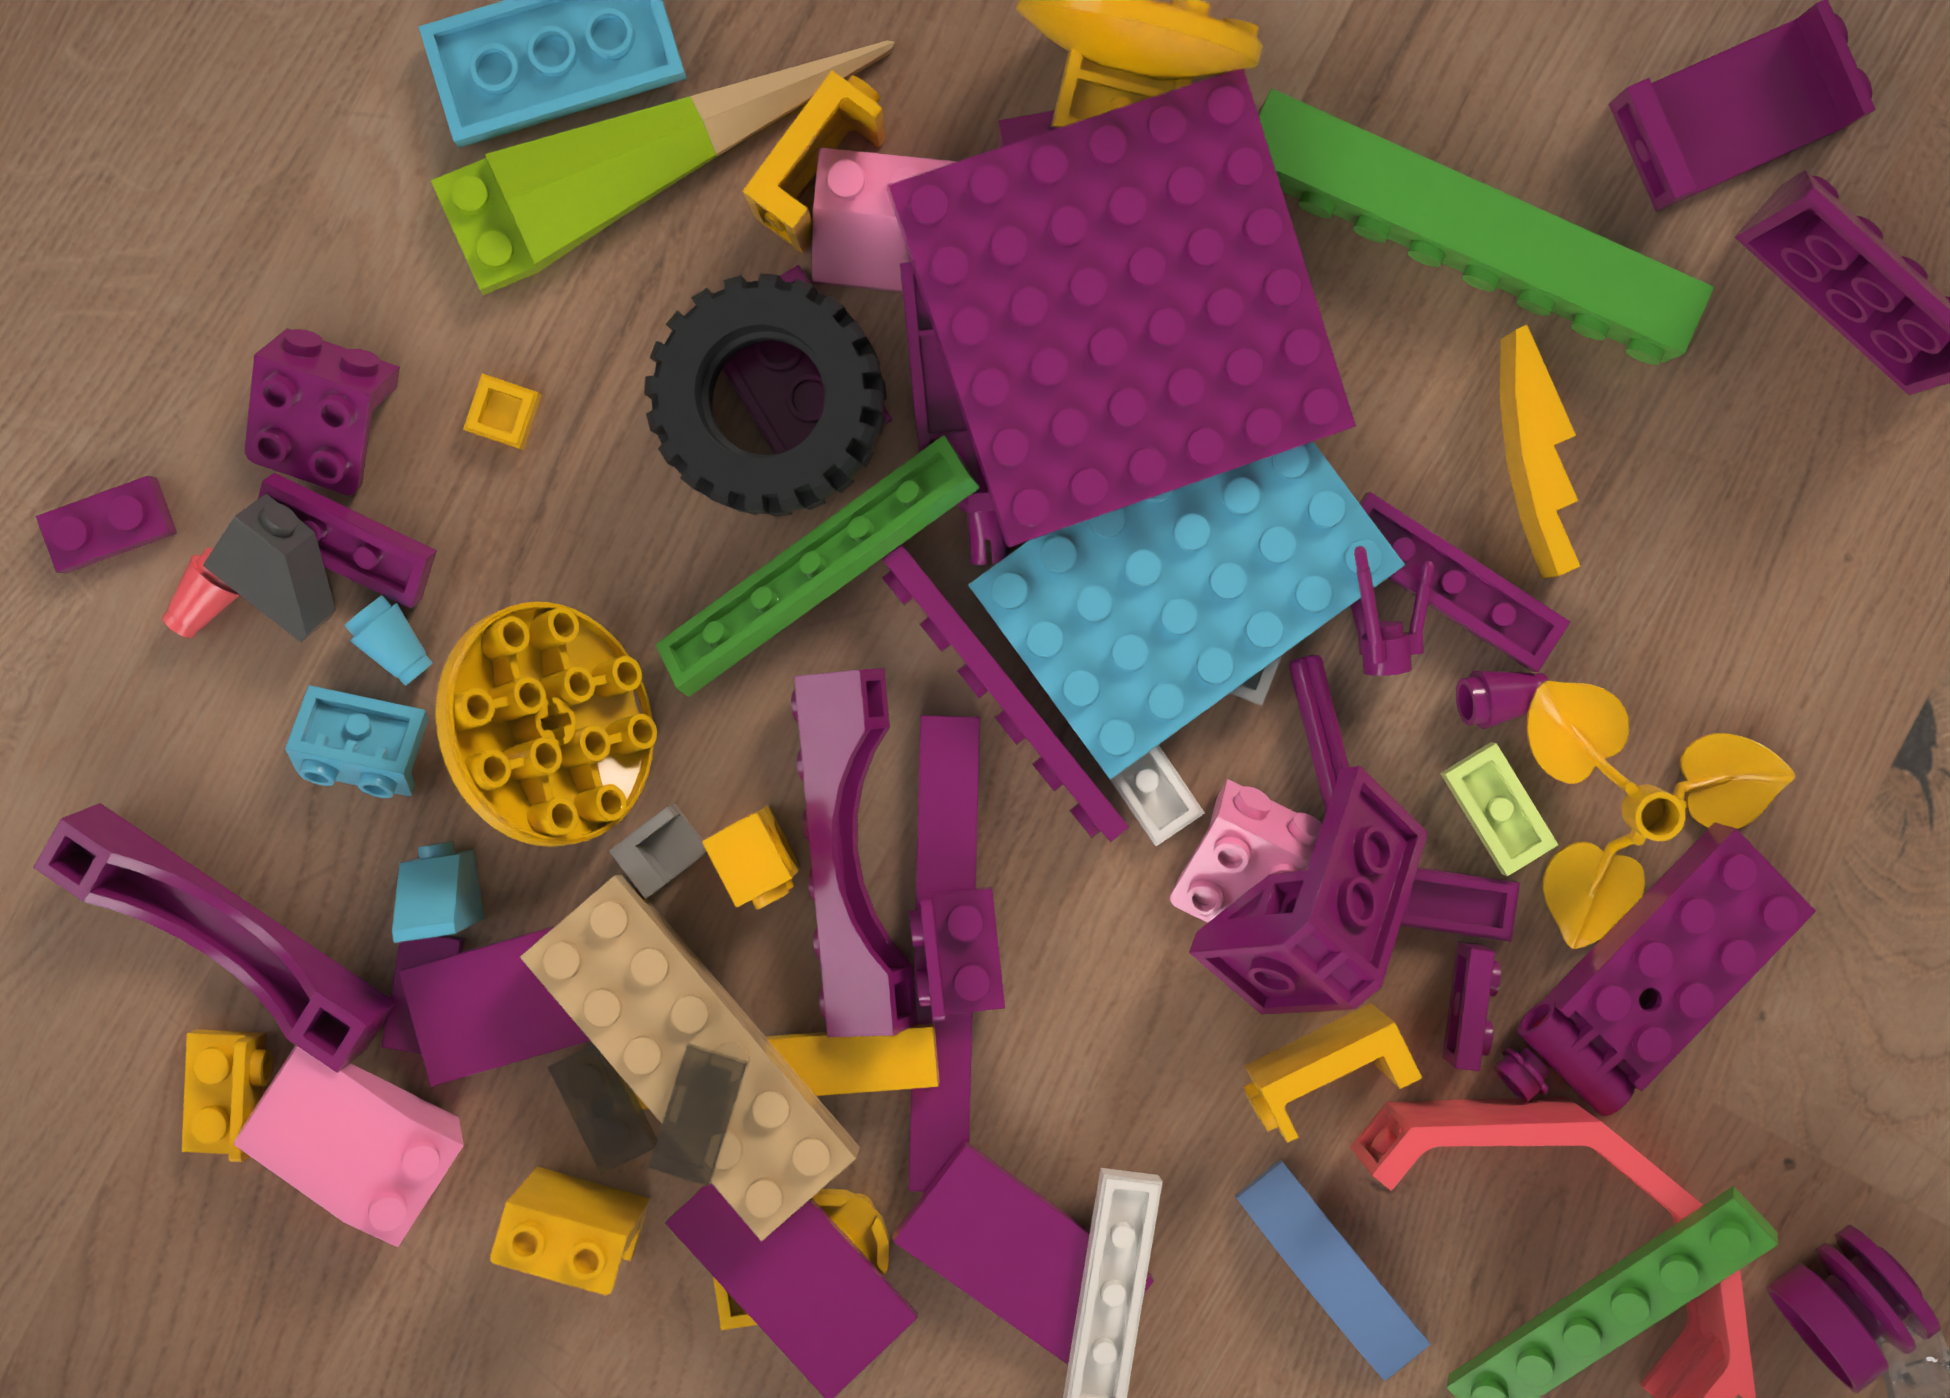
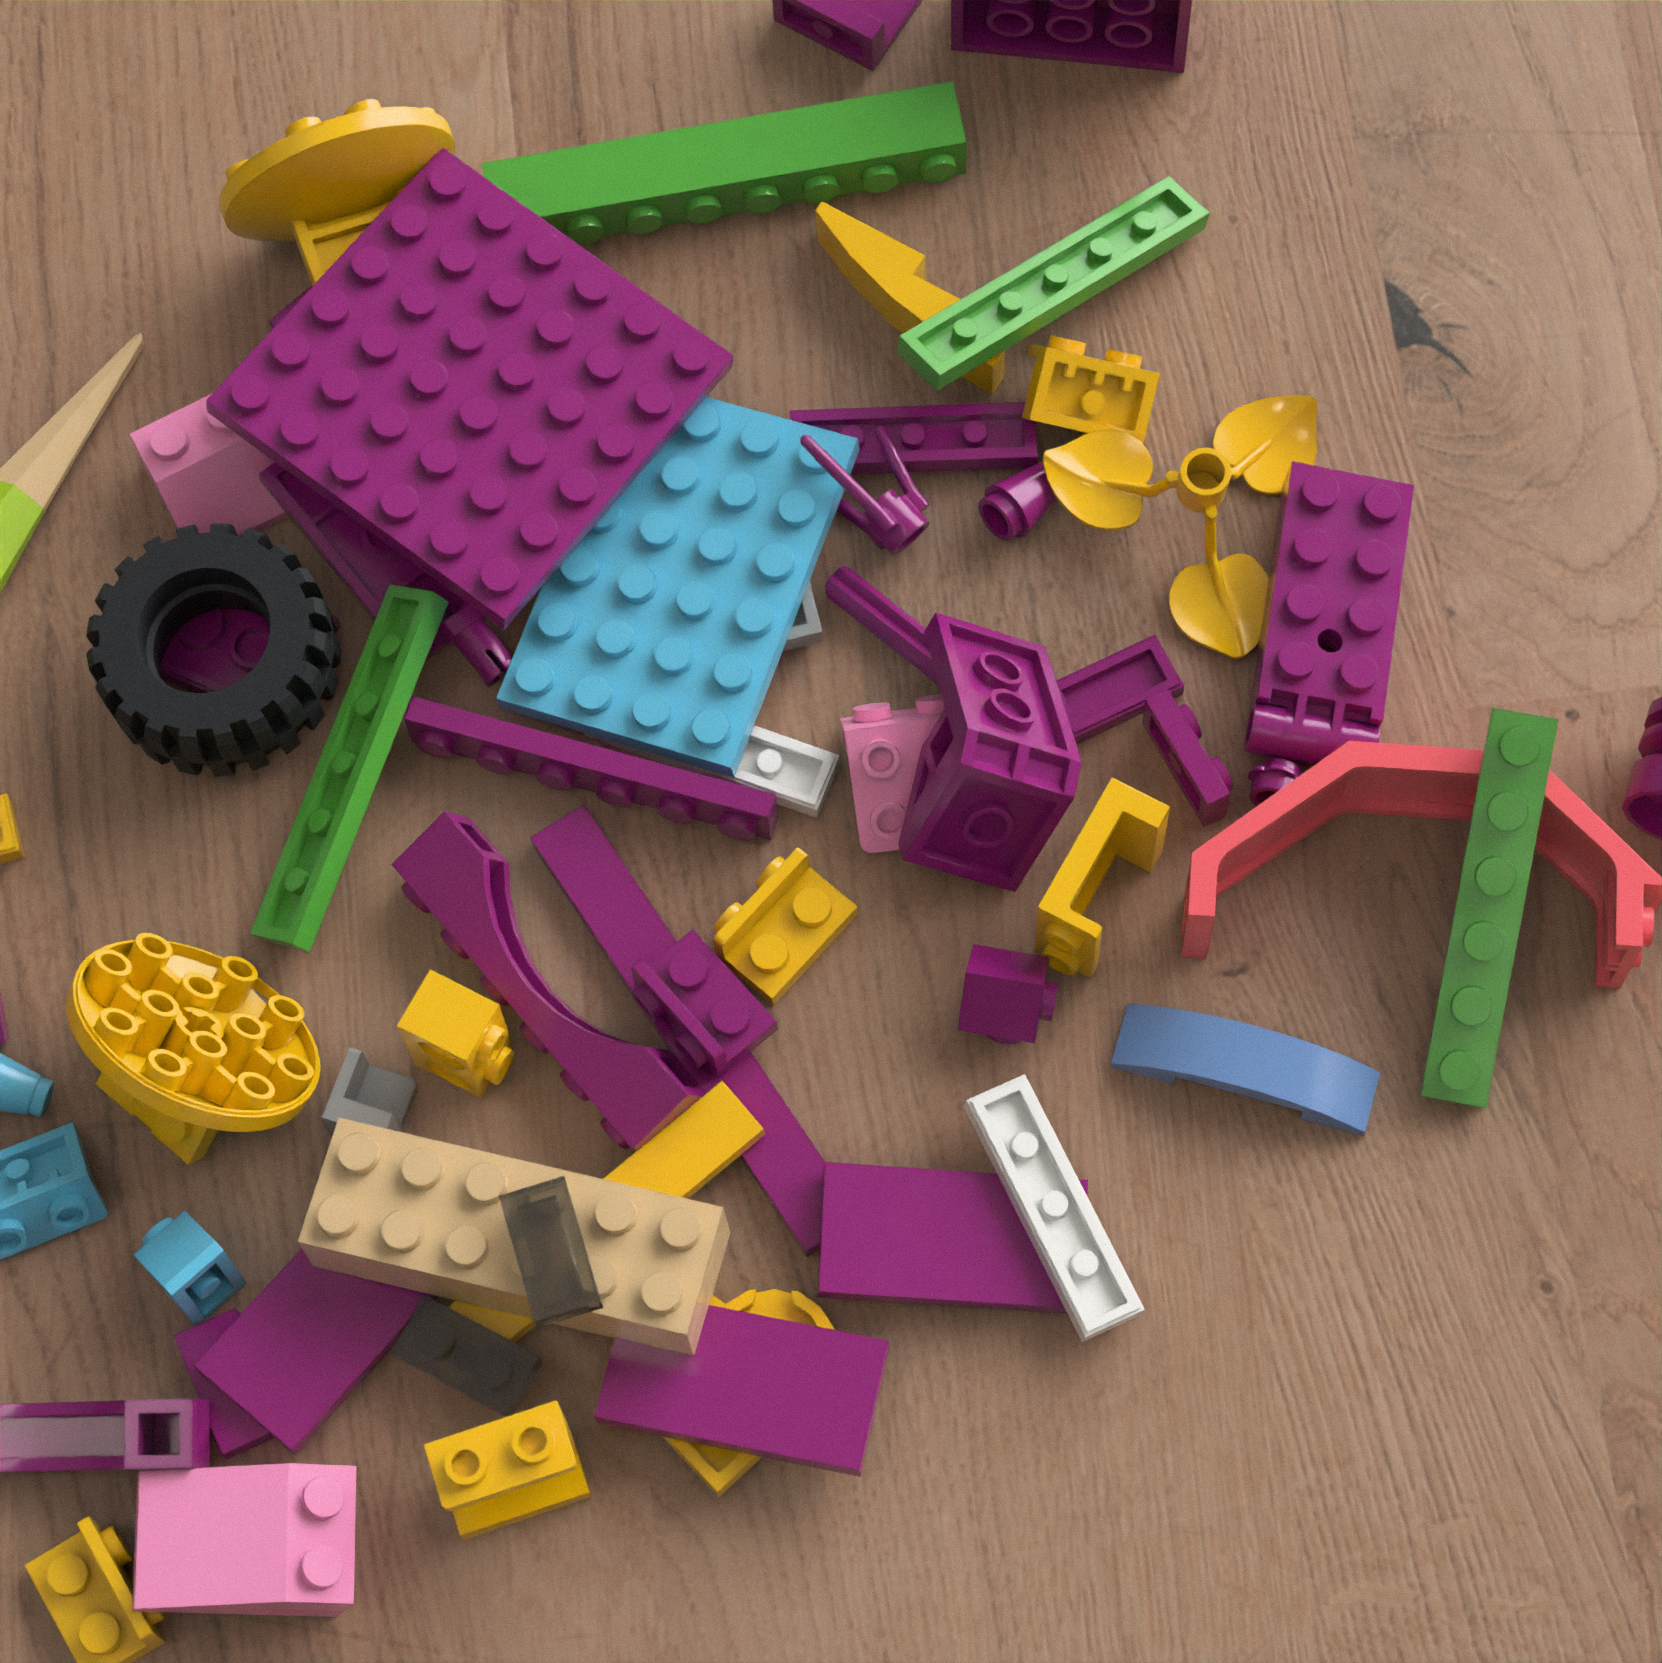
camera: 30 degrees left, 20 degrees down
(792, 164) = (125, 497): yellow panel -> none
(1065, 923) = (782, 926): none -> yellow bracket
(1194, 1104) = (1006, 994): none -> magenta brick
(1499, 809) = (1090, 586): yellowish green plate -> none
(1622, 645) = (1089, 391): none -> yellow bracket
(1660, 535) = (1051, 283): none -> bright green plate

